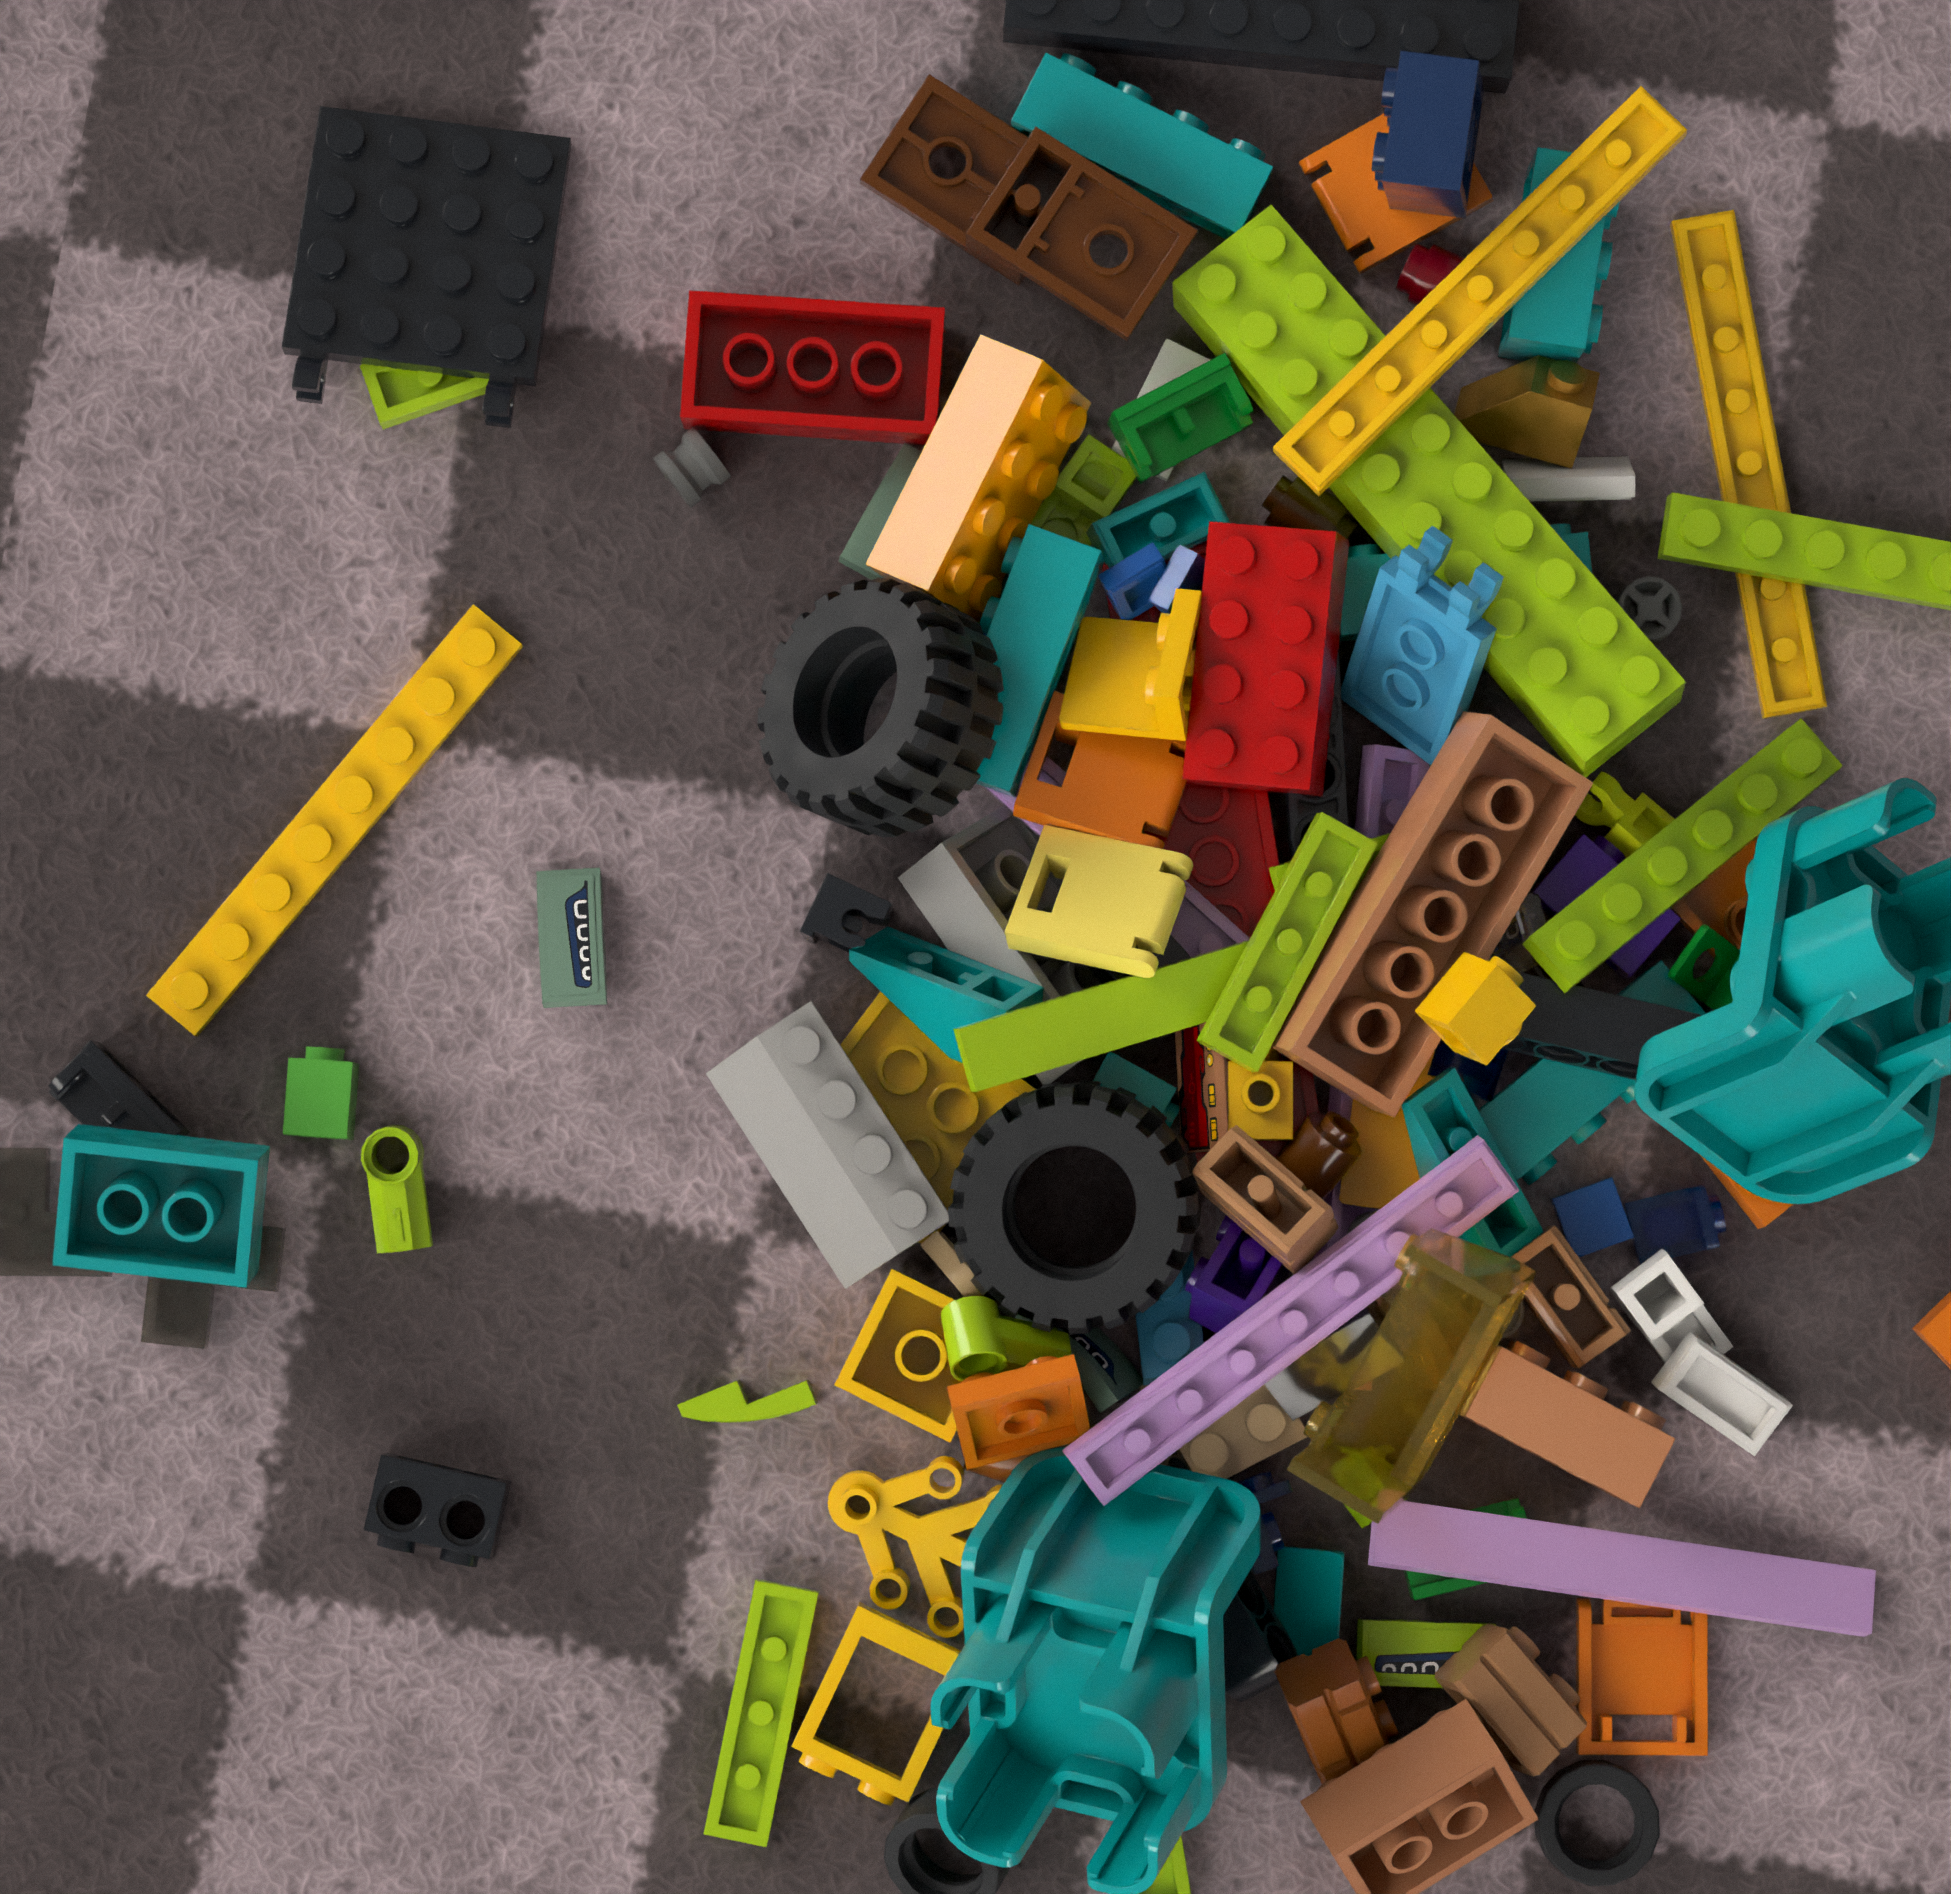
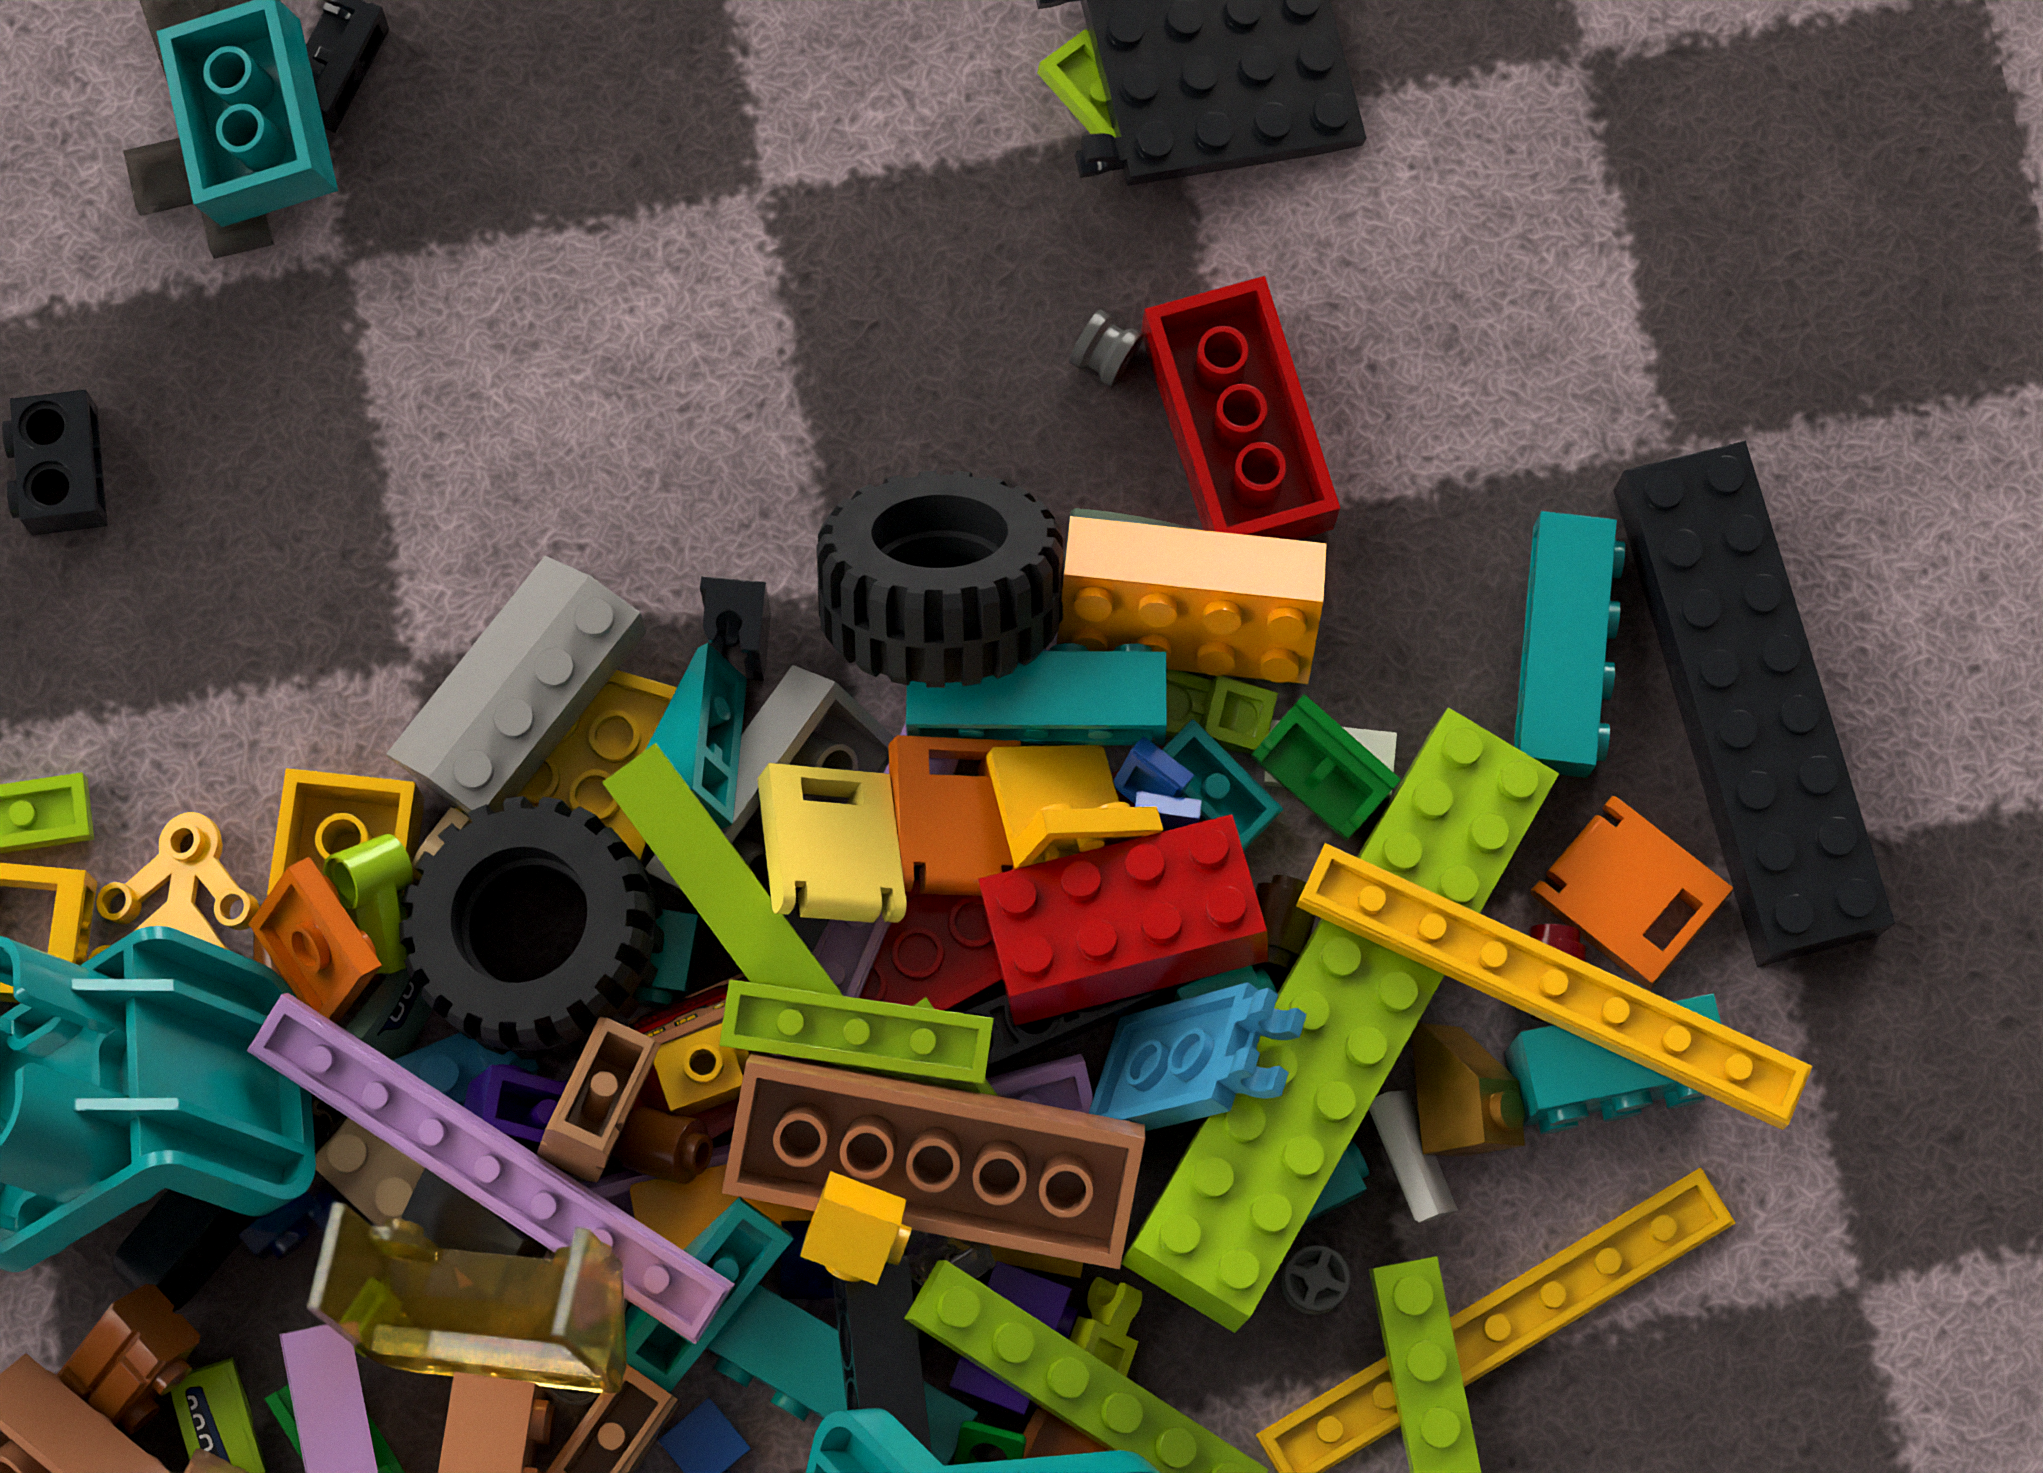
camera: 60 degrees right, 10 degrees down
(321, 1095) = (404, 228): bright green brick -> none
(334, 820) = (665, 156): yellow plate -> none
(399, 1197) = (336, 326): lime piece -> none
(571, 937) = (629, 396): sand green slope -> none
(731, 1404) = (244, 696): lime slope -> none
(1028, 207) = (1466, 557): reddish brown bracket -> none
(1309, 1595) = (240, 1303): teal slope -> none
(1432, 133) = (1684, 884): dark blue brick -> none

